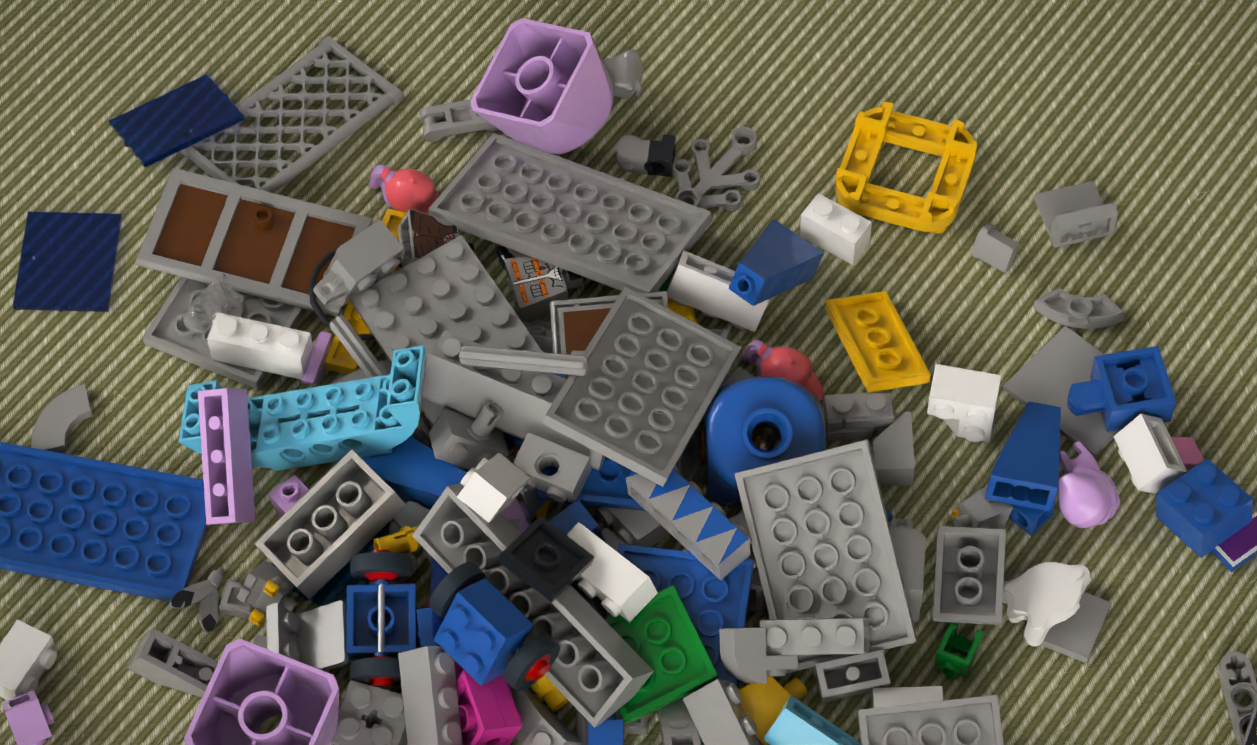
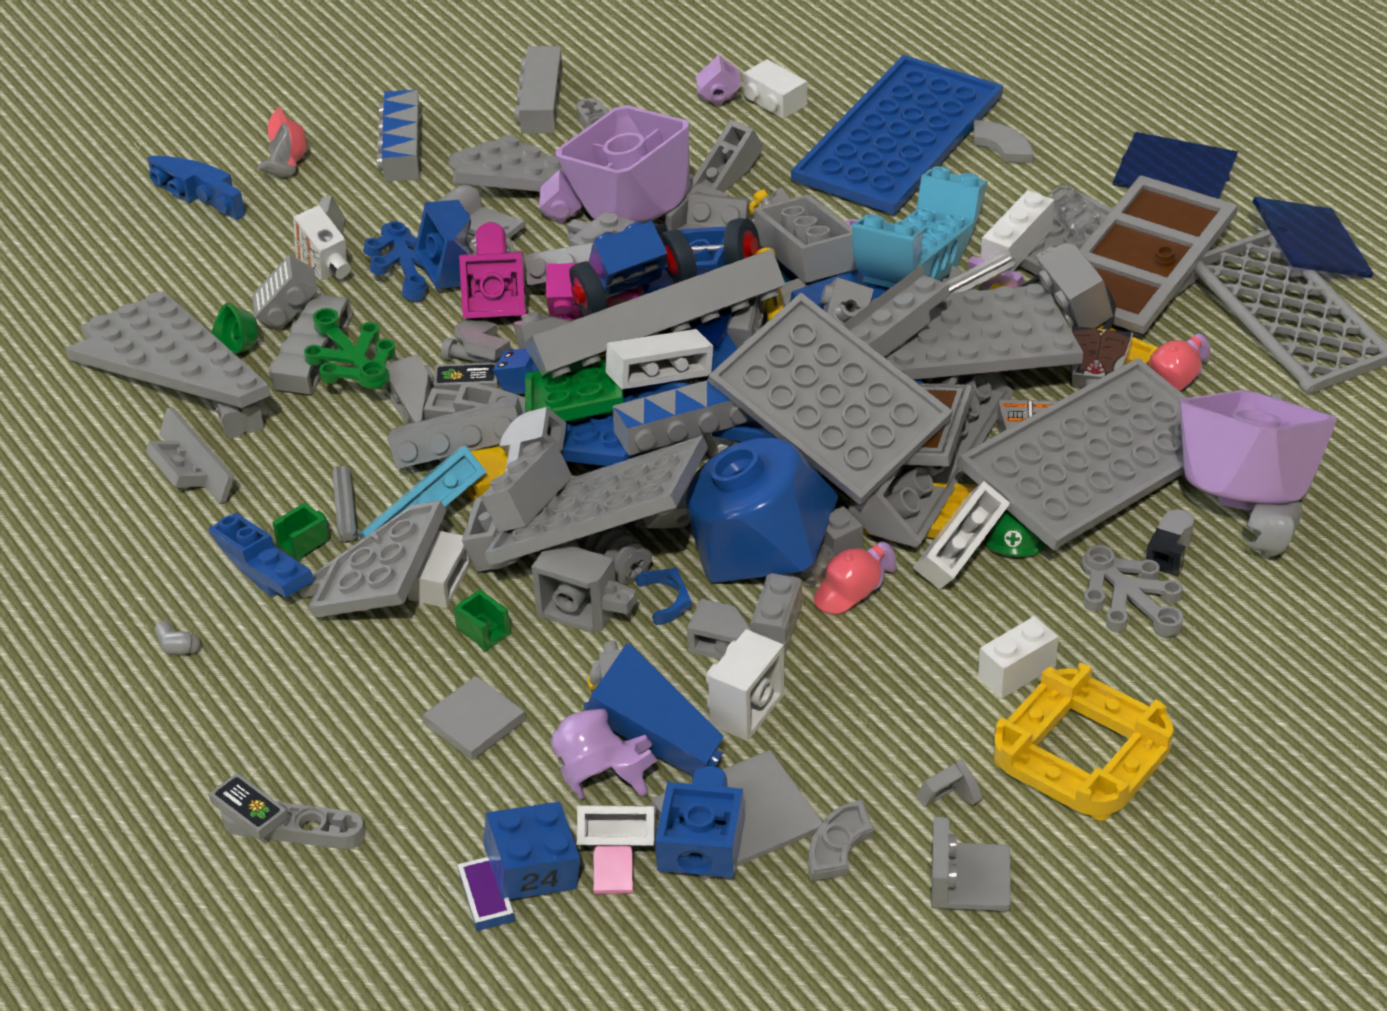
camera: 110 degrees right, 15 degrees down
(206, 594) = (791, 178): light grey piece -> none
(226, 456) = (903, 188): lavender brick -> none
(492, 486) = (764, 283): white brick -> none
(524, 360) = (876, 305): light grey axle -> none
(546, 559) = (672, 299): black tile -> none
(774, 265) = (974, 573): blue slope -> none
(877, 341) = (855, 643): yellow piece -> none
(969, 575) = (547, 636): light grey slope -> none
(1045, 597) = (500, 693): white tile -> none

